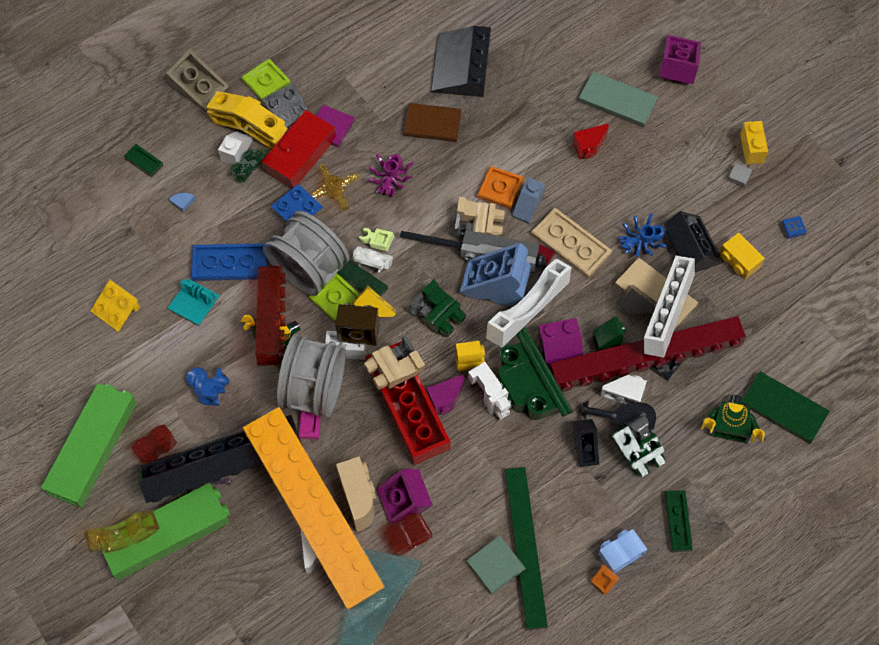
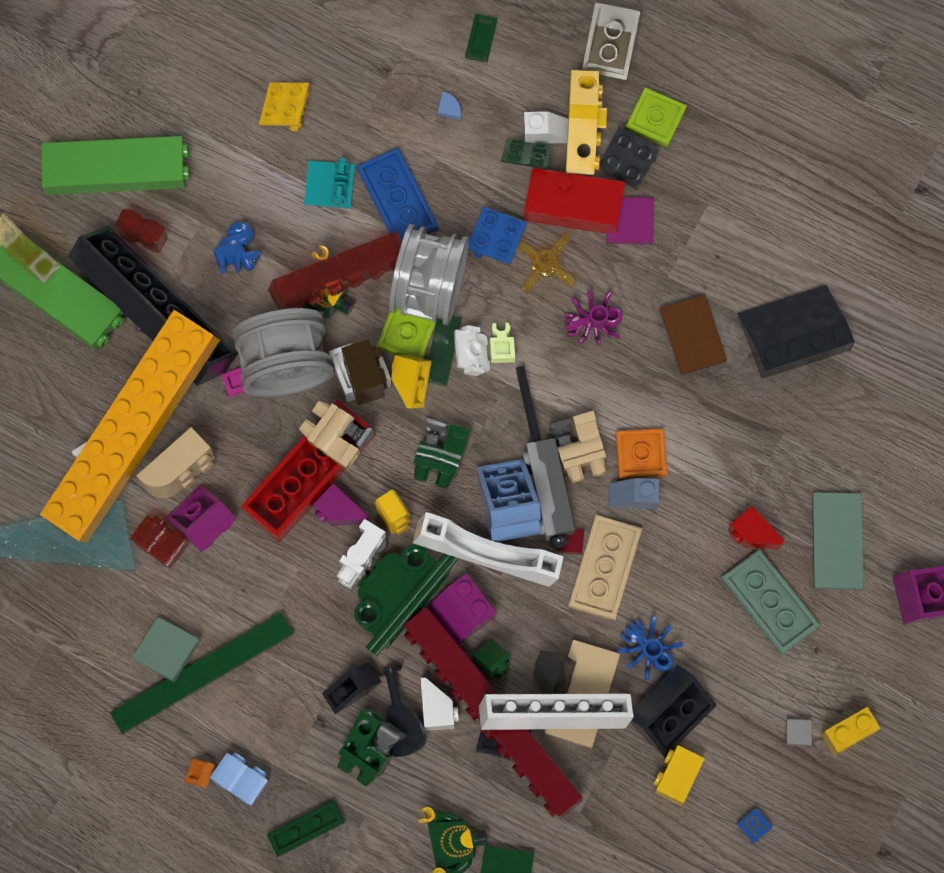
camera: 65 degrees right, 10 degrees up
(641, 154) = (770, 602): none -> sand green tile

